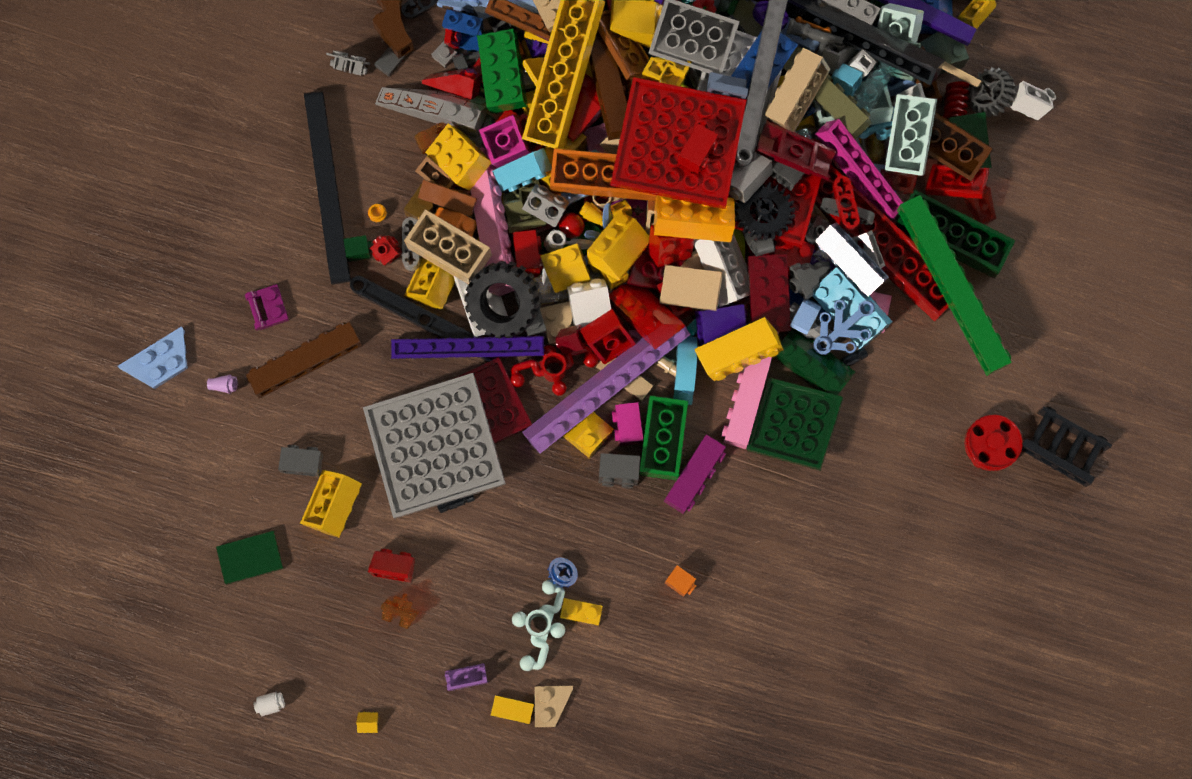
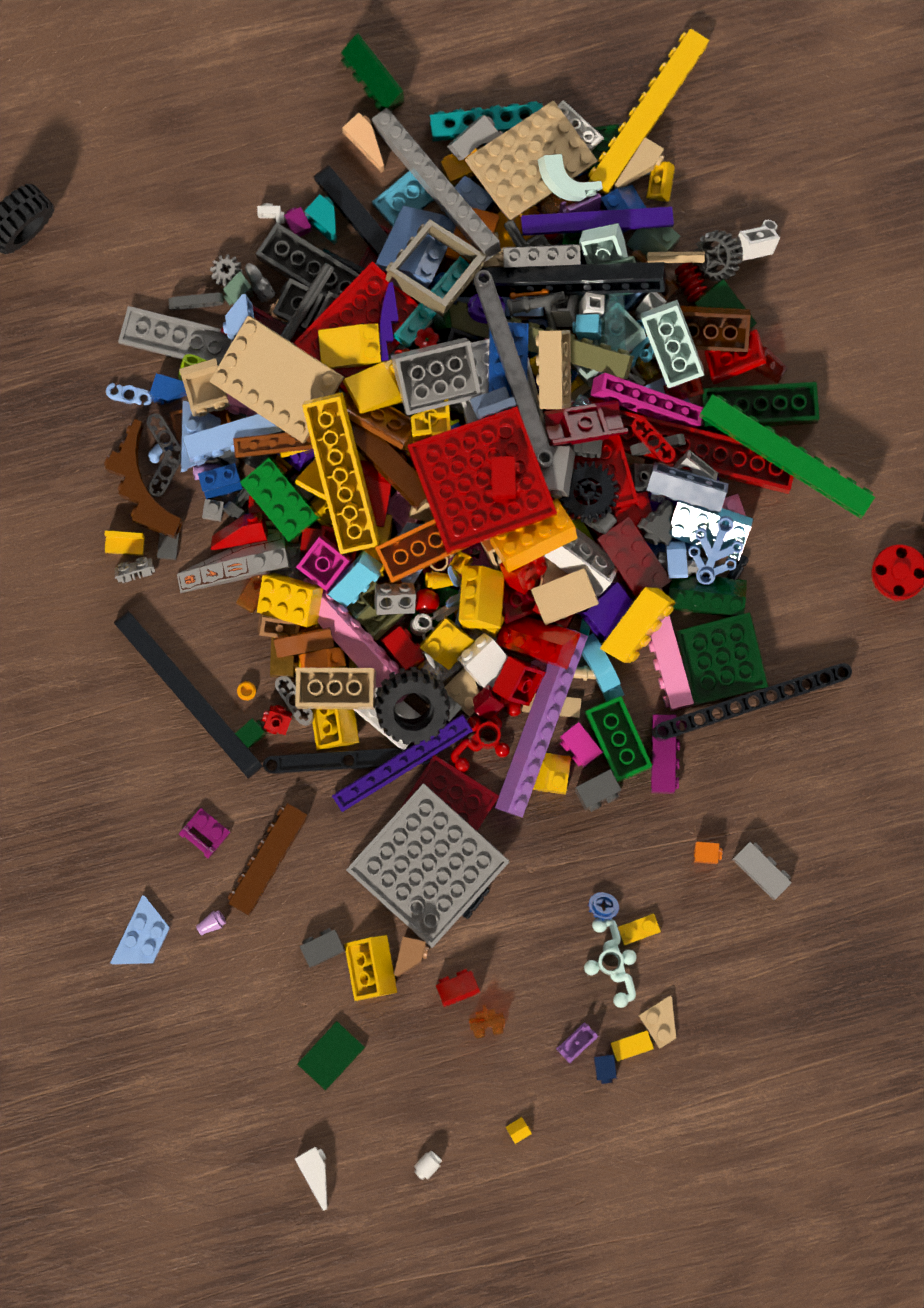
camera: 25 degrees left, 5 degrees up
(170, 646) = (314, 1171): none -> white slope
(355, 37) = (124, 543): none -> yellow panel
(369, 512) = (410, 955): none -> medium nougat slope
(452, 38) = (214, 495): red plate -> none
(476, 715) = (605, 1068): none -> dark blue brick
(720, 626) = (762, 870): none -> light grey brick
(808, 475) = (759, 696): none -> black beam

